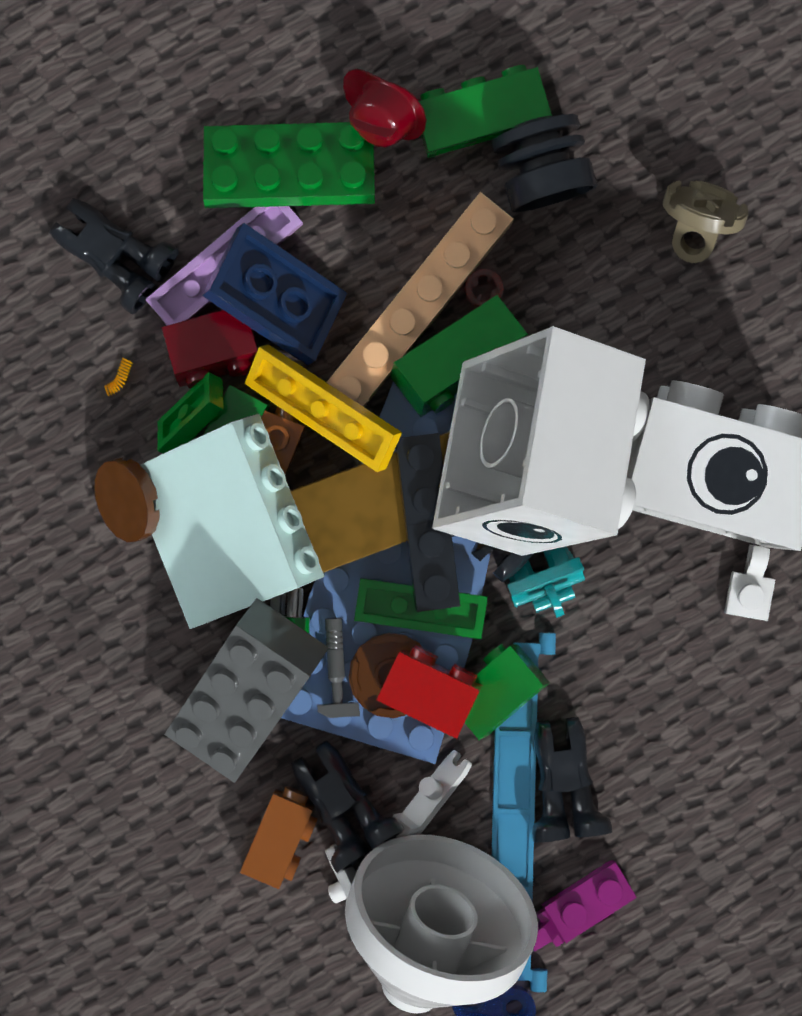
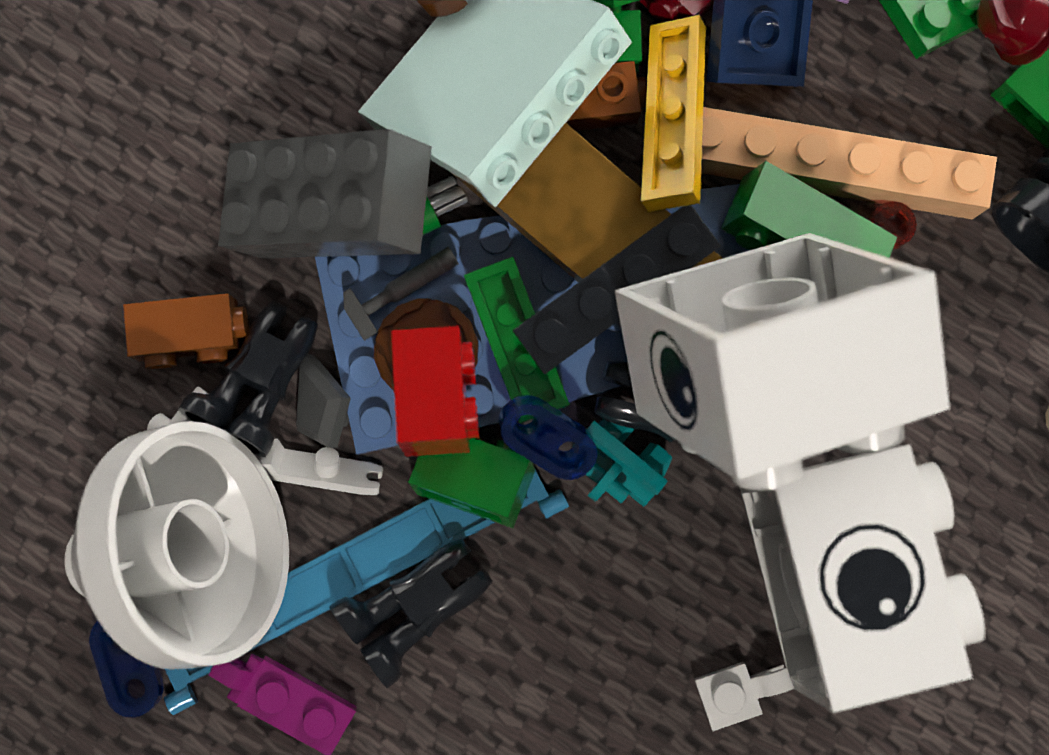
camera: 60 degrees right, 5 degrees down
(385, 769) = (320, 404): none -> dark grey piece
(500, 629) = (544, 435): none -> clear blue plate

